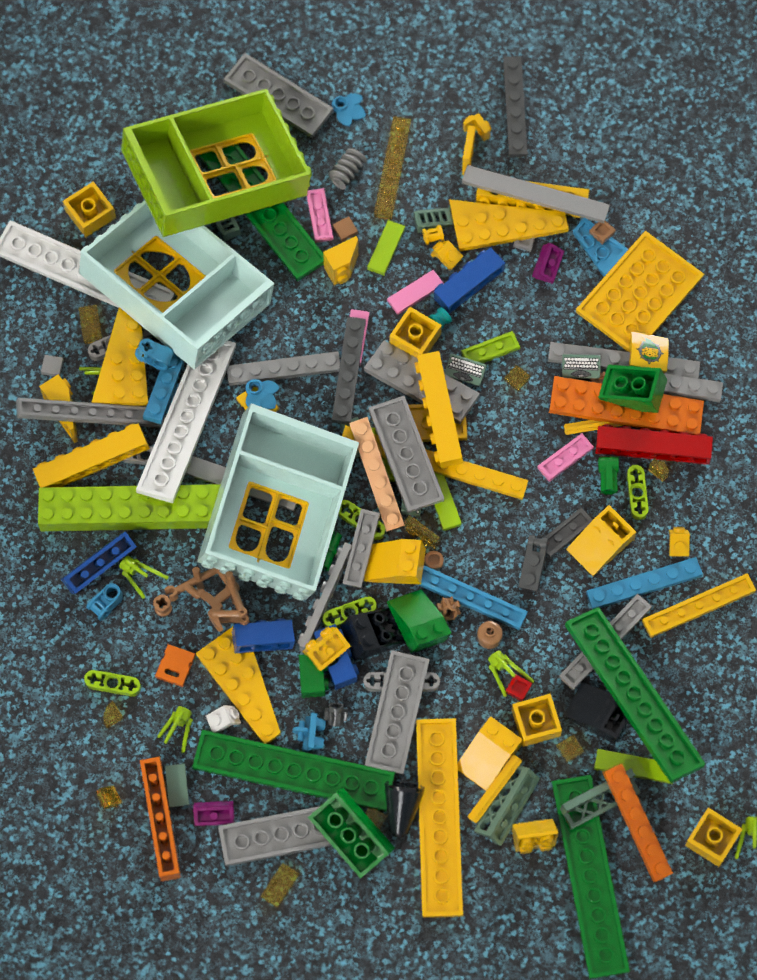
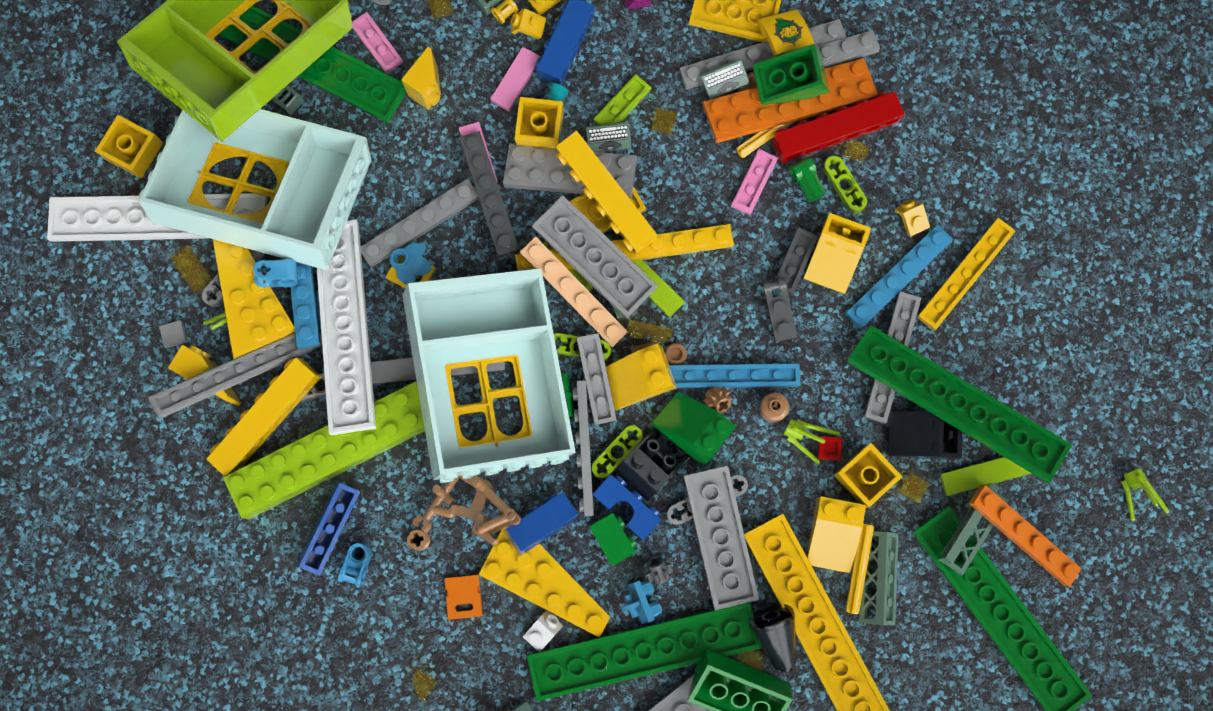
camera: 25 degrees left, 10 degrees up
(127, 681) = (389, 647): lime beam -> none
(132, 566) = (364, 513): lime plant -> none
(179, 718) = (497, 652): lime plant -> none
(326, 647) = (615, 506): yellow bracket -> none
(345, 229) = (410, 45): medium nougat tile -> none
(386, 247) = (462, 45): lime tile -> none
(534, 835) = (929, 601): yellow slope -> none
(713, 837) = (1106, 512): yellow brick -> none

